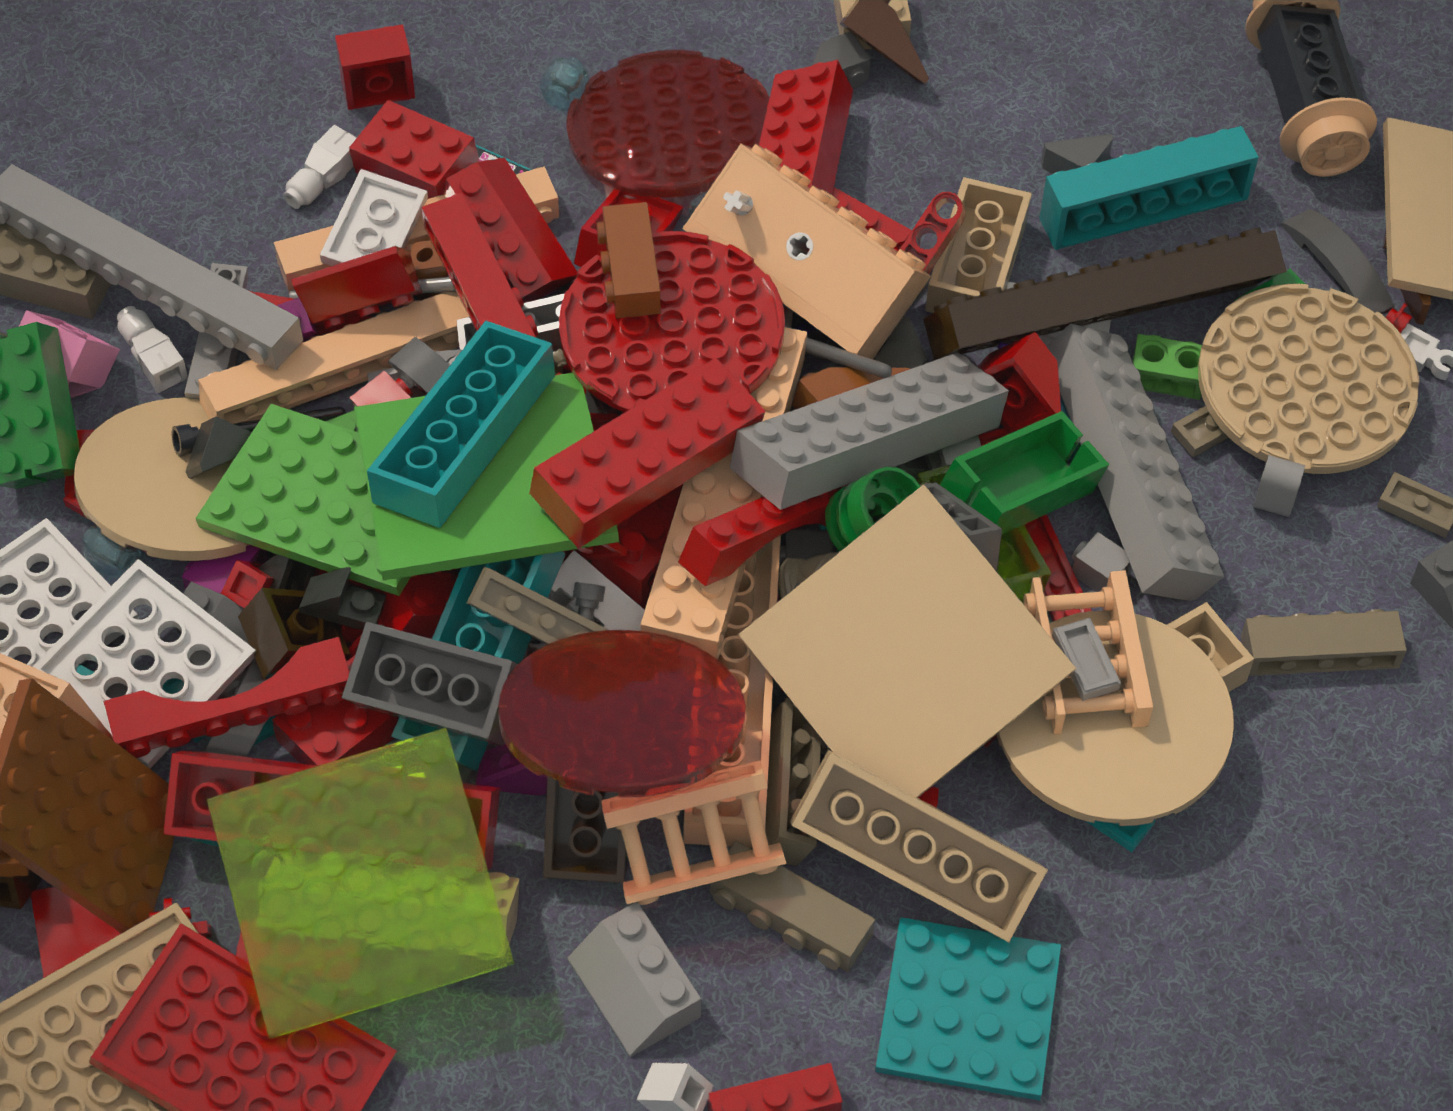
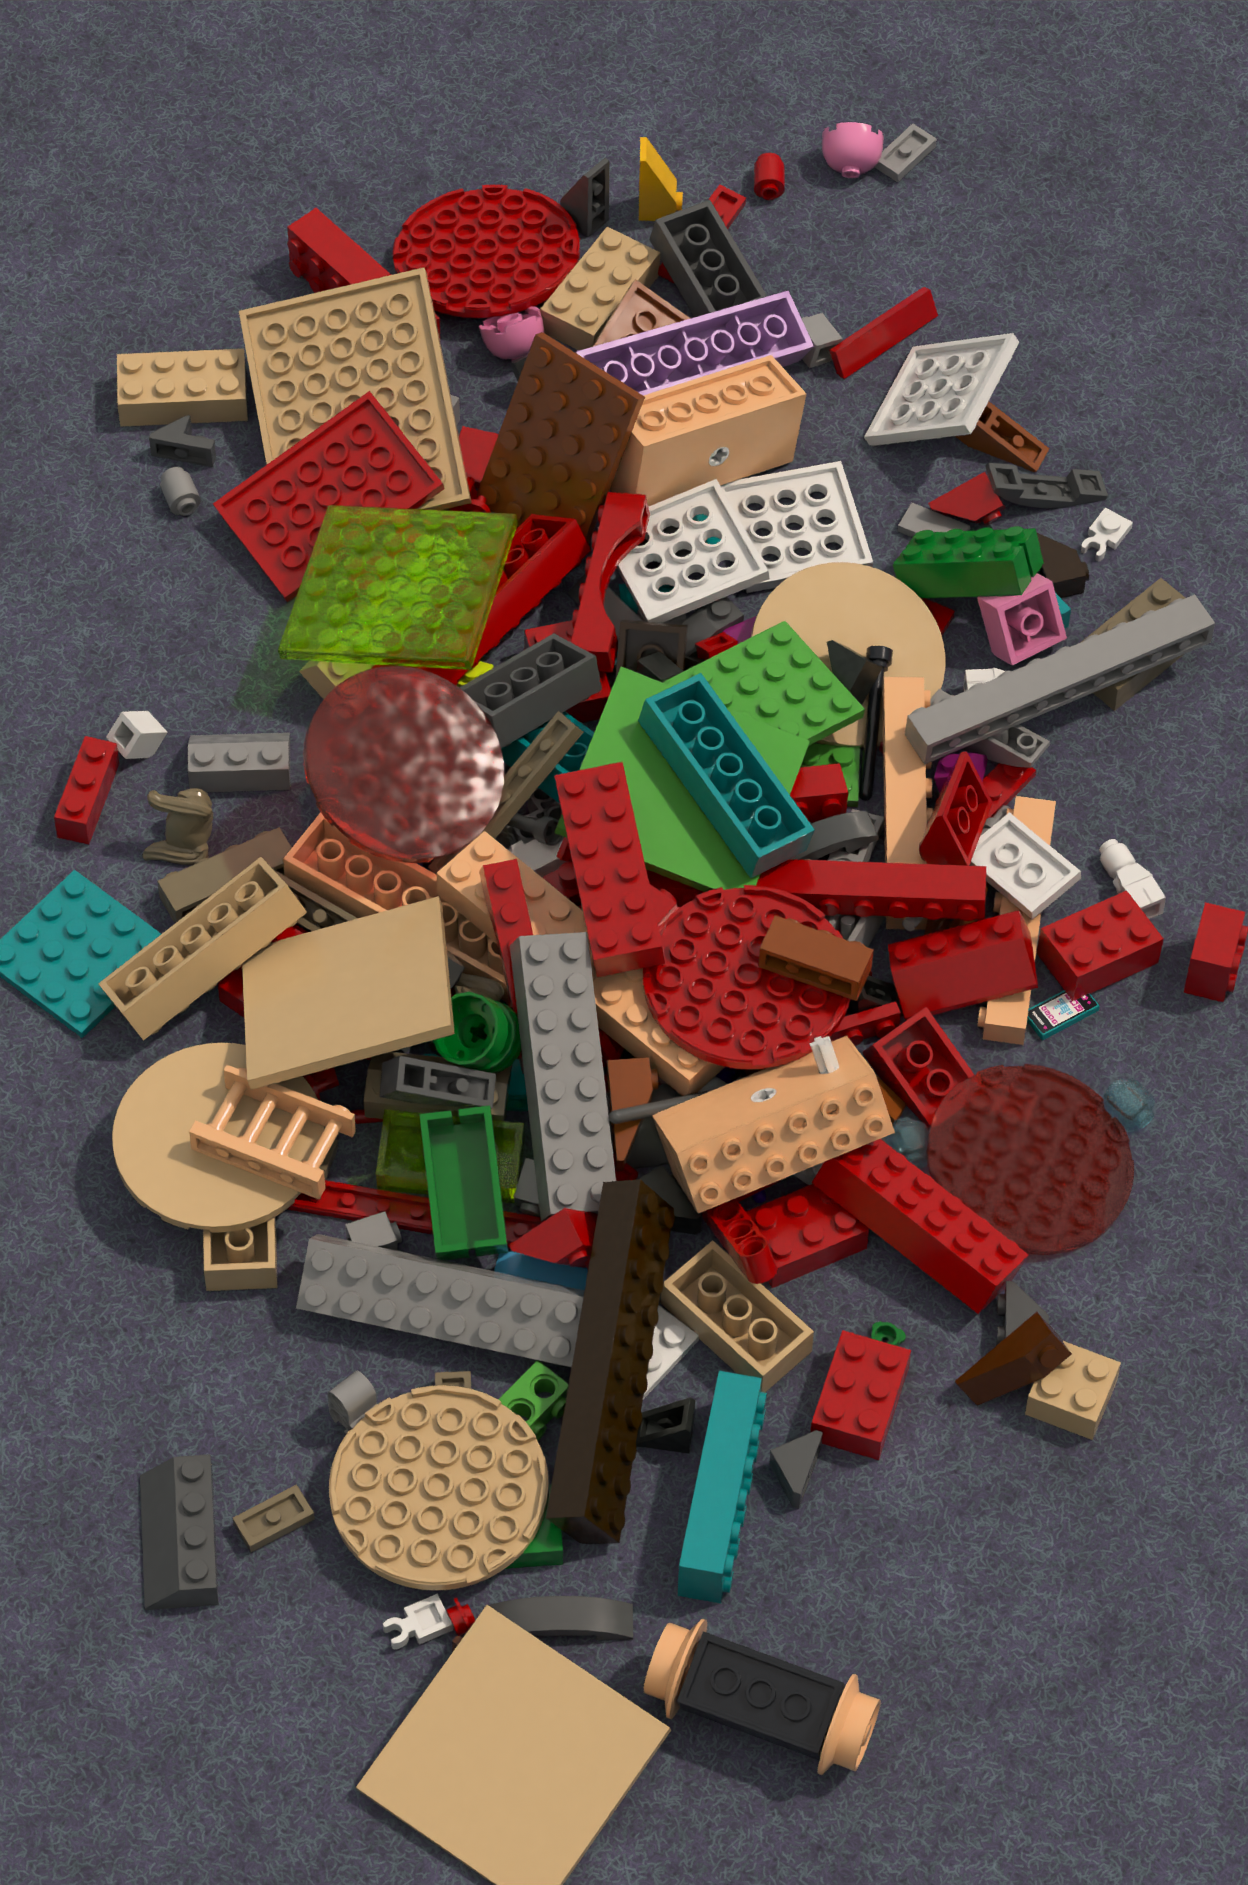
camera: 120 degrees right, 0 degrees up
(739, 782) = (289, 818): light nougat fence -> none
(761, 965) = (186, 827): none -> dark tan hair
(916, 149) = (889, 1331): none -> green plate
(984, 141) = (861, 1394): none -> red brick
(1085, 650) = (261, 1113): light grey tile -> none
(1108, 243) = (668, 1427): none -> pearl dark grey slope
(1324, 642) = (197, 1356): dark tan brick -> none

